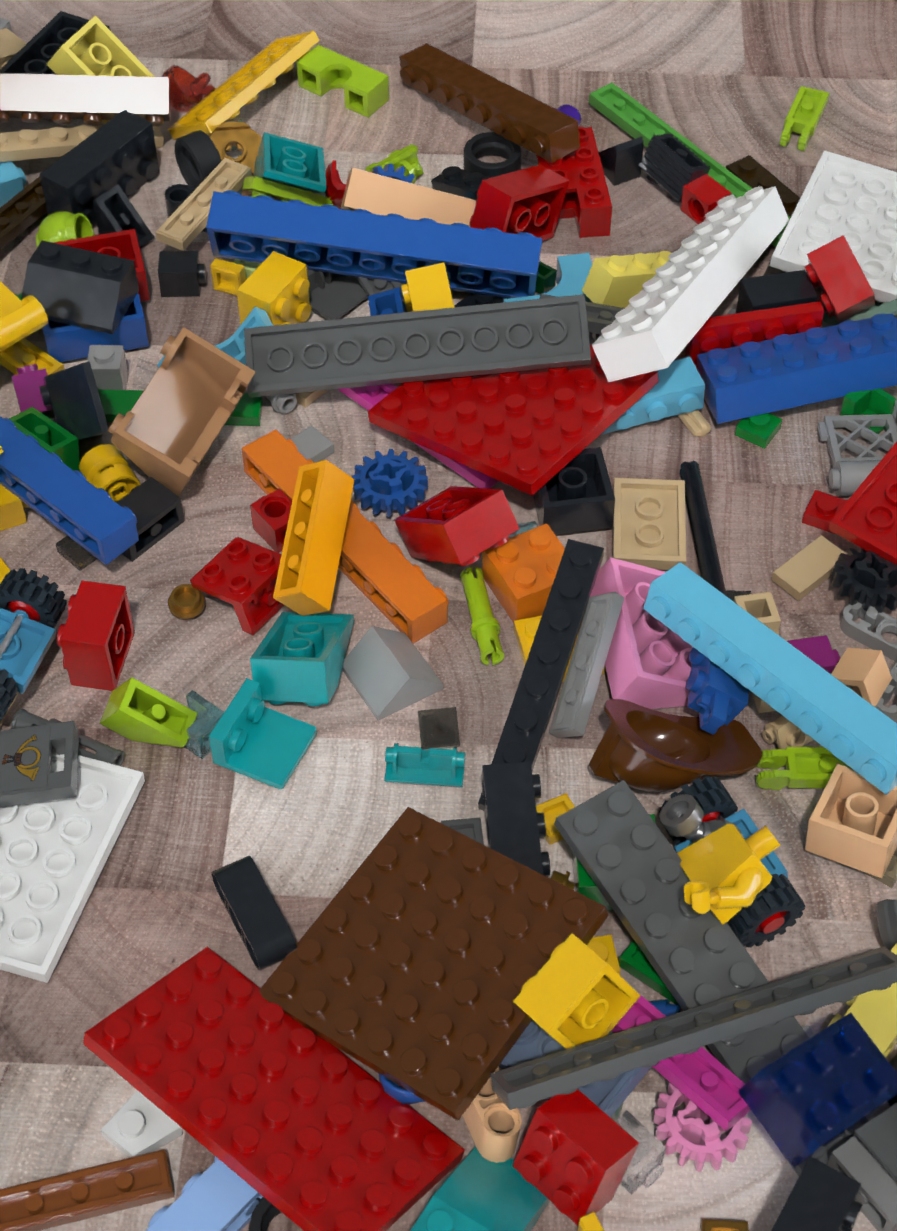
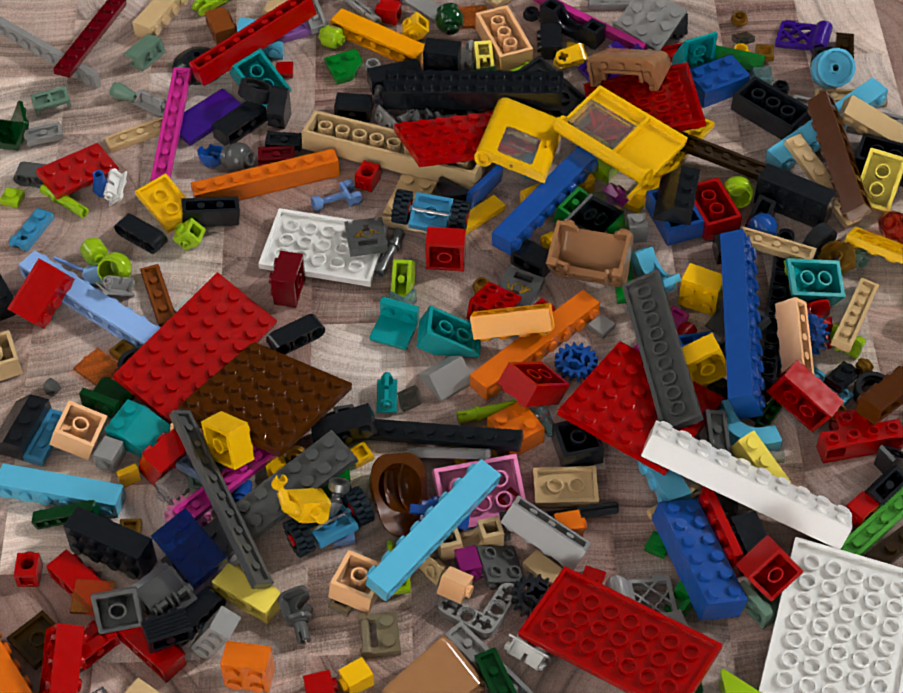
camera: 85 degrees right, 0 degrees up
(114, 909) = (287, 279): none -> dark red brick
(146, 219) = (763, 223): none -> blue hair
(211, 536) = (528, 291): none -> dark grey container
(367, 144) = (854, 315): none -> tan plate
(446, 158) = (864, 365): none -> pearl gold plate
(732, 525) = (572, 520): none -> orange brick
(763, 541) = (545, 533): none -> light grey brick
(814, 618) = (499, 565): none -> dark grey hinge

